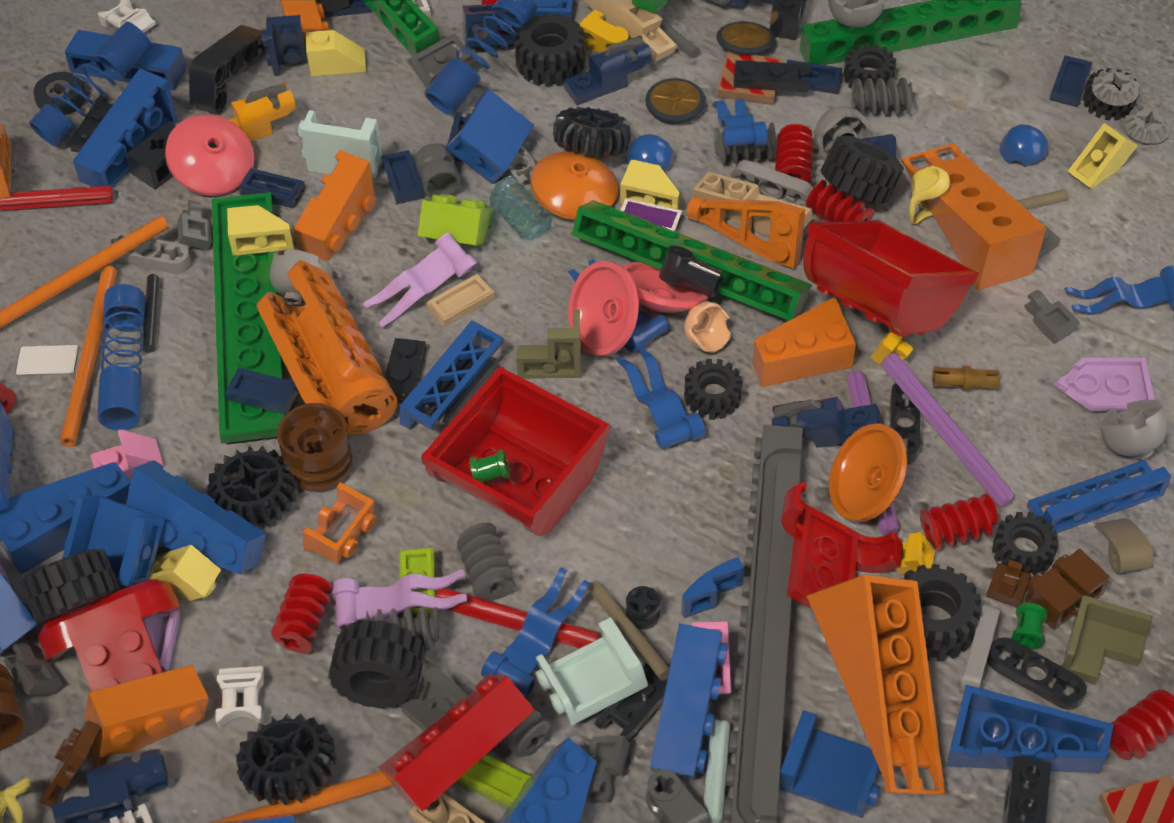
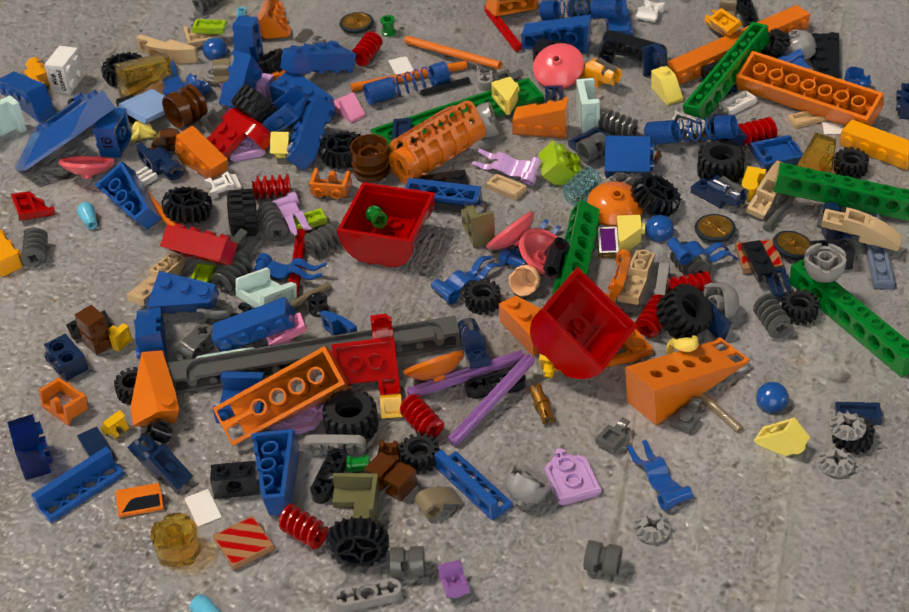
camera: 75 degrees right, 10 degrees down
(403, 124) = (618, 124): none -> dark grey piece

